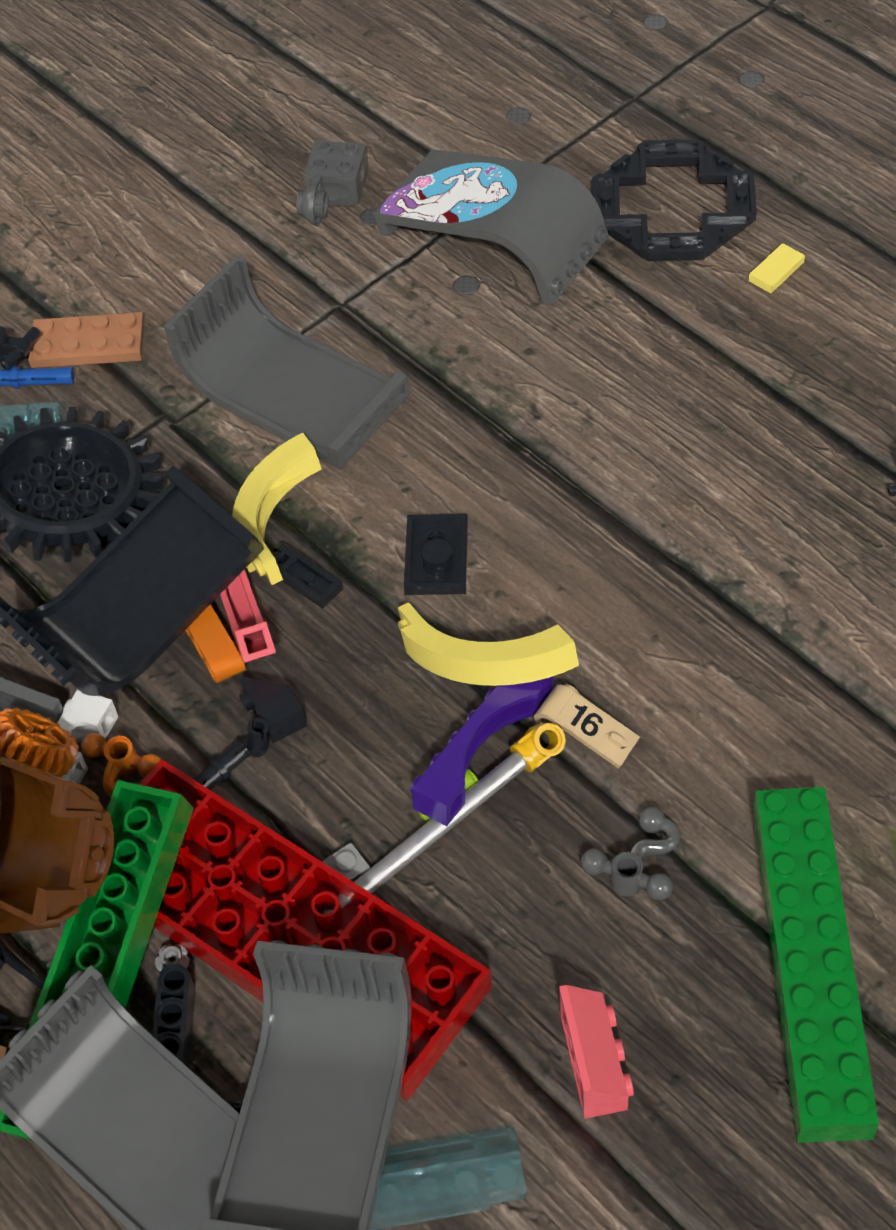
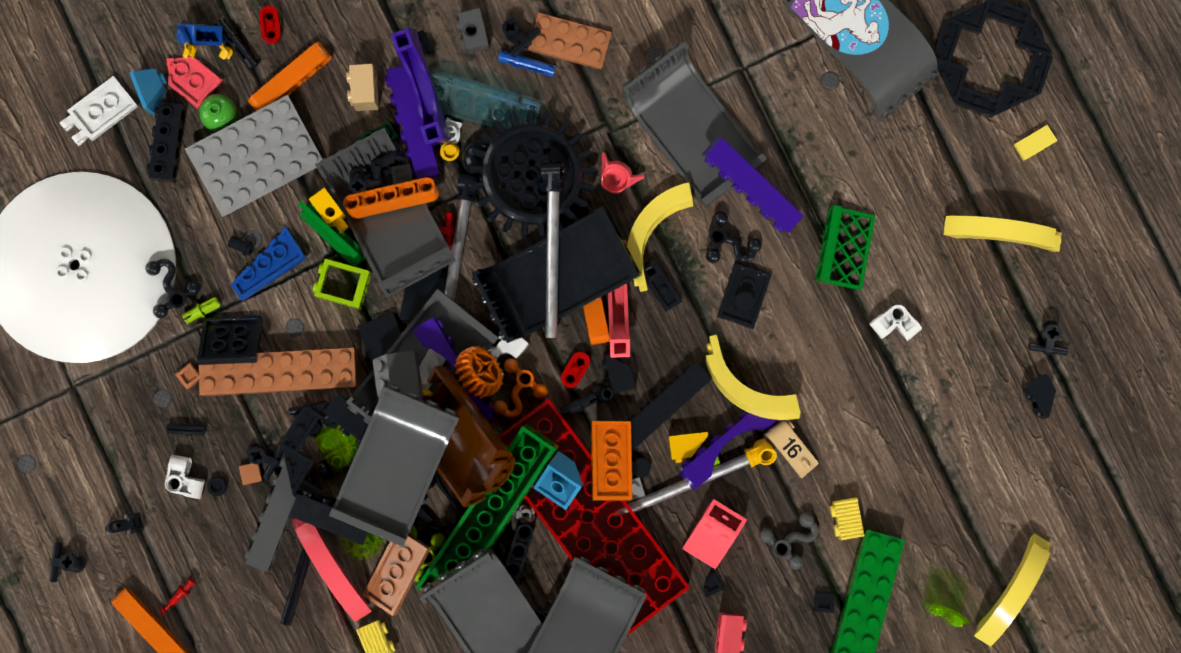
camera: 10 degrees right, 30 degrees up
(90, 461) = (553, 175): none -> flat silver piece
(197, 457) = (617, 175): none -> coral piece
(199, 725) = (574, 369): none -> red plate
(208, 865) = (560, 481): none -> dark azure slope
(291, 813) = (611, 460): none -> orange plate
(350, 829) = (641, 467): none -> black tile
(353, 735) = (667, 402): none -> black brick
(372, 490) = (713, 255): none -> black piece
(396, 404) = (752, 185): none -> dark purple brick
(405, 765) = (685, 445): none -> yellow slope
(505, 882) = (714, 533): none -> coral slope
(533, 973) = (712, 585): none -> black tile
(540, 460) = (829, 242): none -> green fence
(680, 510) = (886, 323): none -> white piece
(719, 796) = (847, 518): none -> light yellow brick
(734, 939) = (824, 602): none -> black tile
(775, 350) = (1003, 230): none -> light yellow arch

